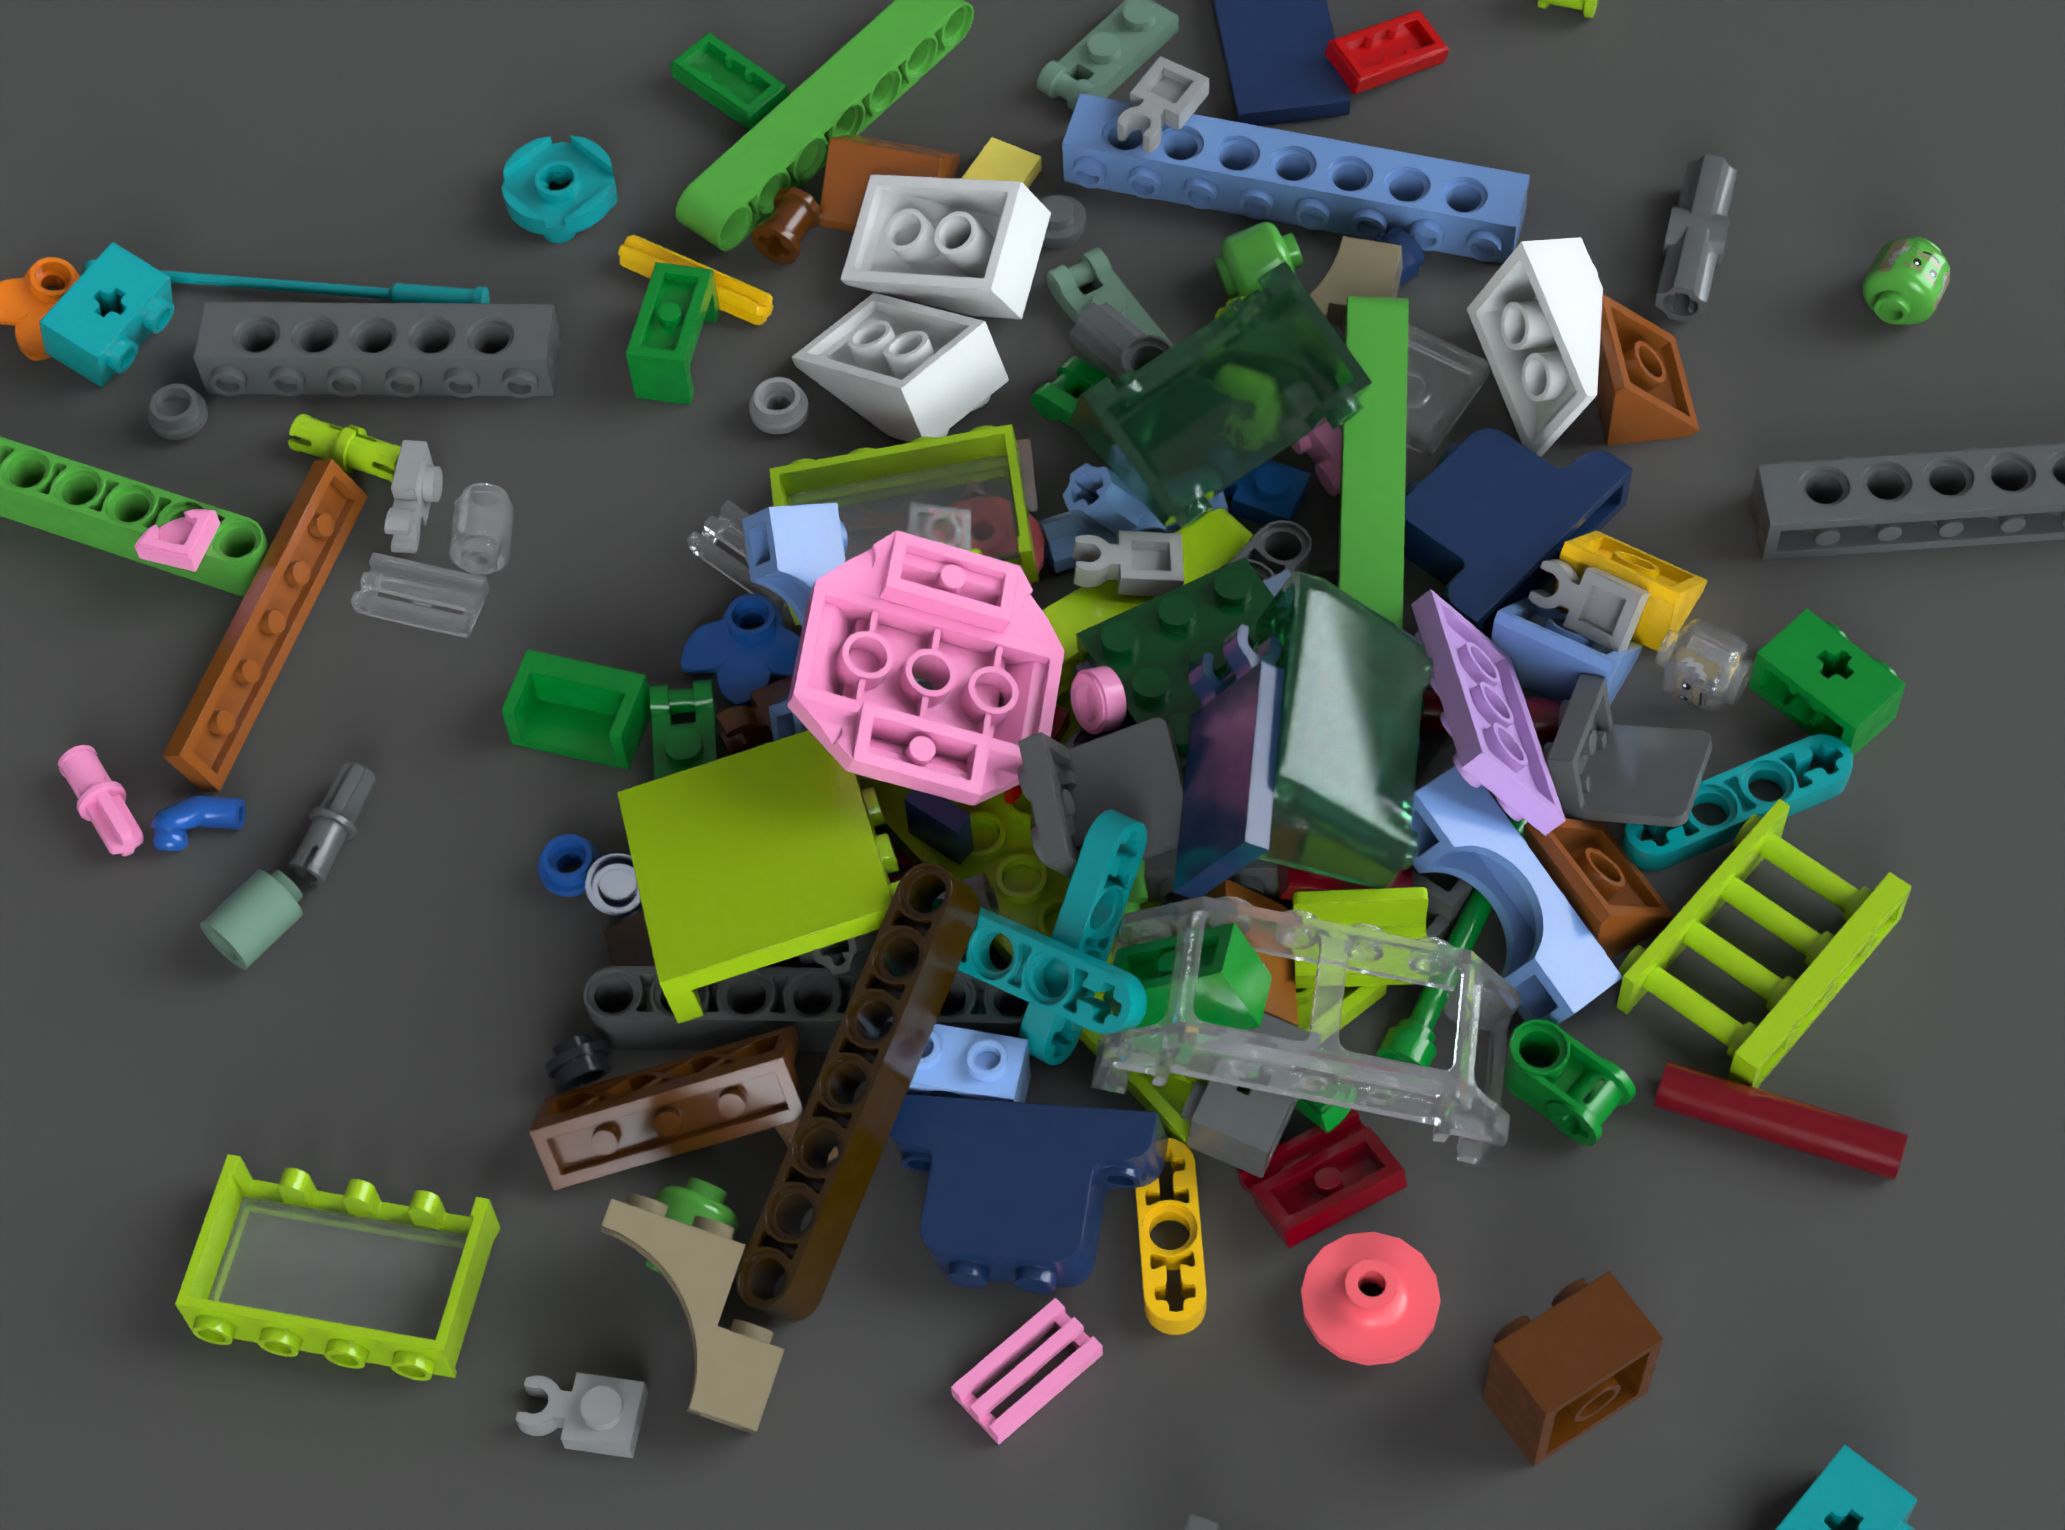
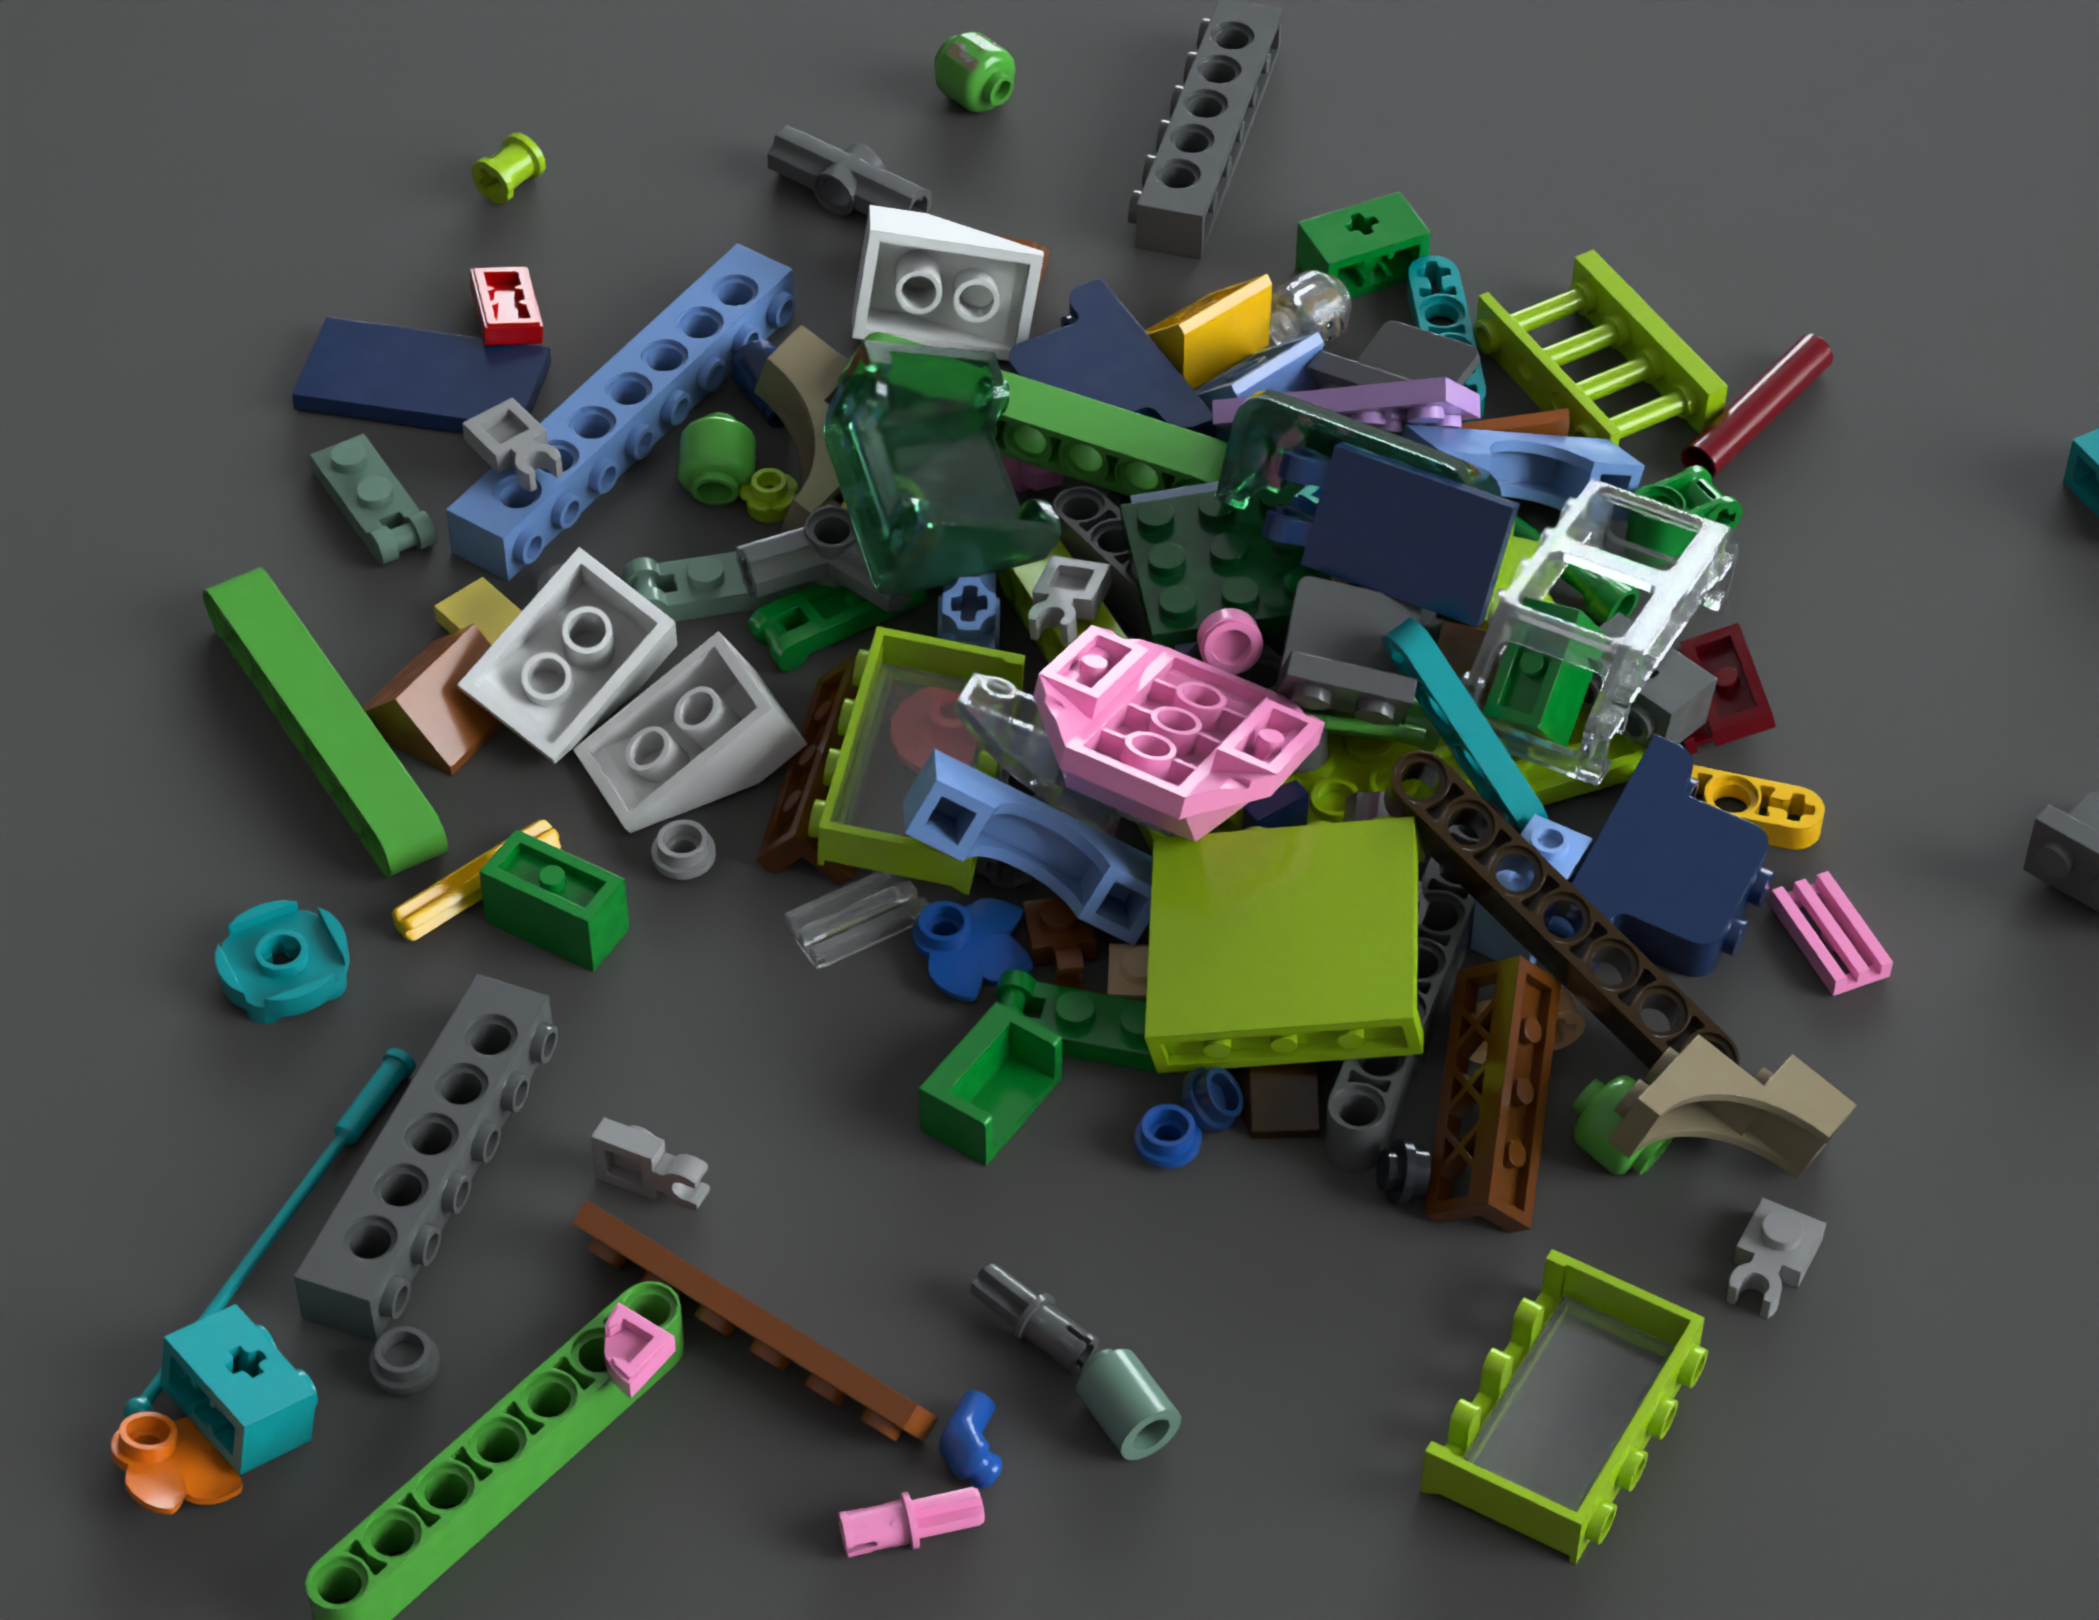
camera: 75 degrees left, 10 degrees down
(346, 446) = (543, 1213): lime pin -> none
(424, 586) = (739, 1193): clear tile -> none
(482, 529) = (720, 1116): clear brick -> none
(728, 80) = (224, 788): green plate -> none
(787, 225) = (456, 785): reddish brown bush -> none
(1026, 975) = (1477, 754): teal beam -> none
(1364, 1326) = (1843, 686): coral piece -> none
(1570, 1366) = (1961, 570): reddish brown brick -> none
(1598, 604) = (1244, 335): light grey plate -> none

